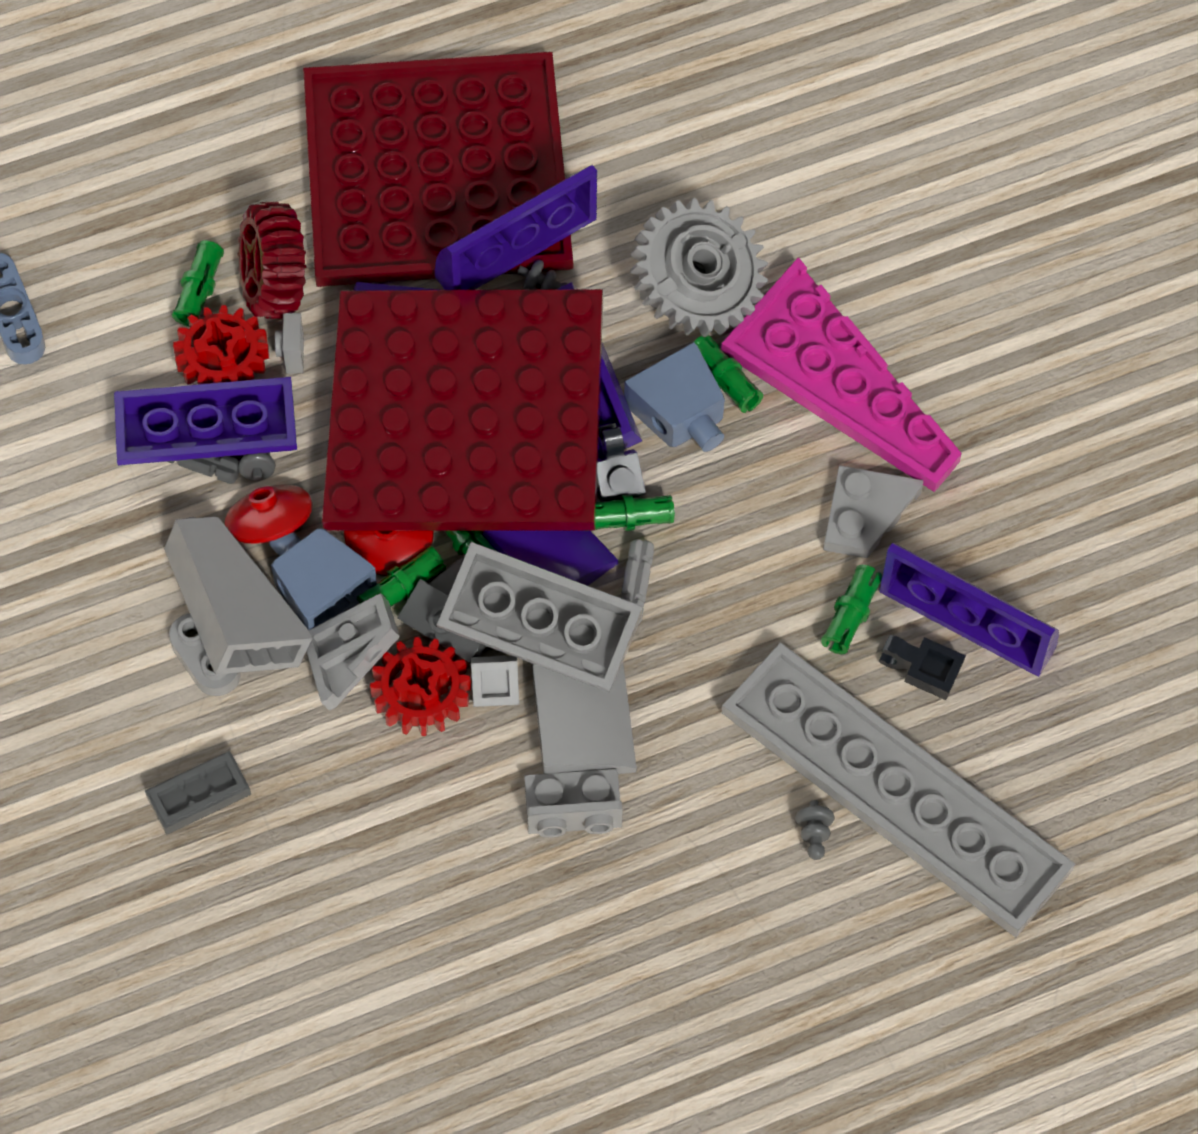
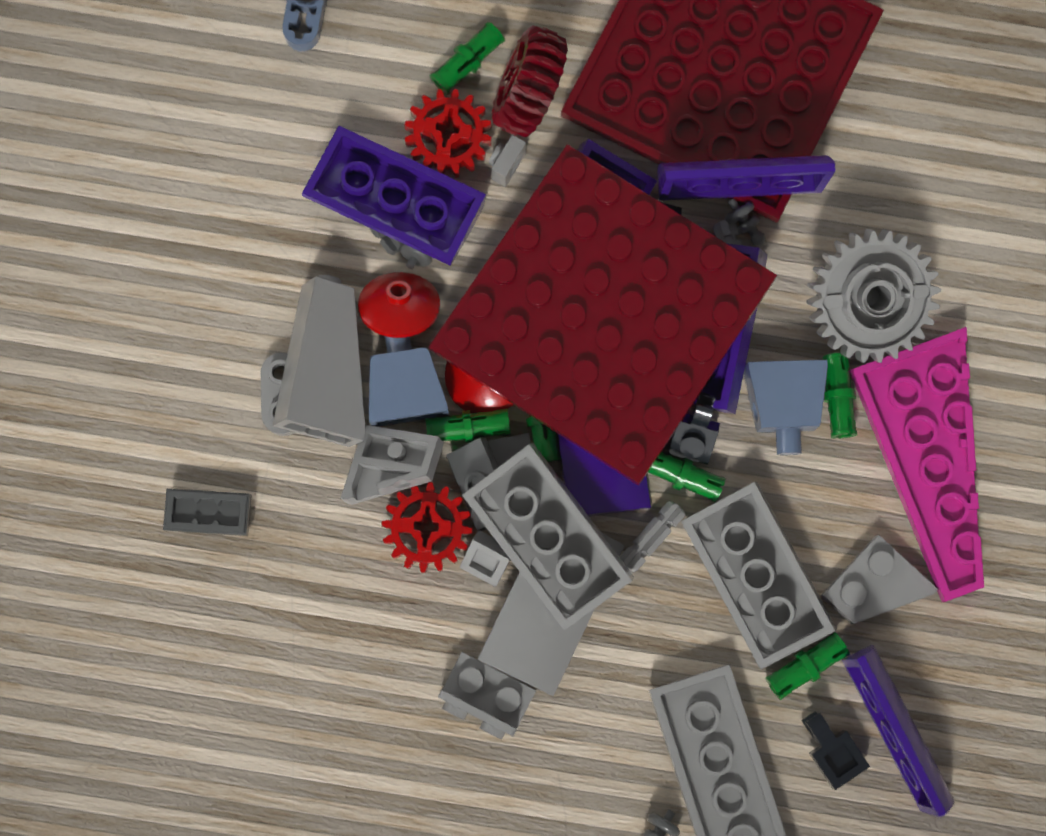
camera: 30 degrees right, 20 degrees up
(756, 556) = (759, 575): none -> light grey slope

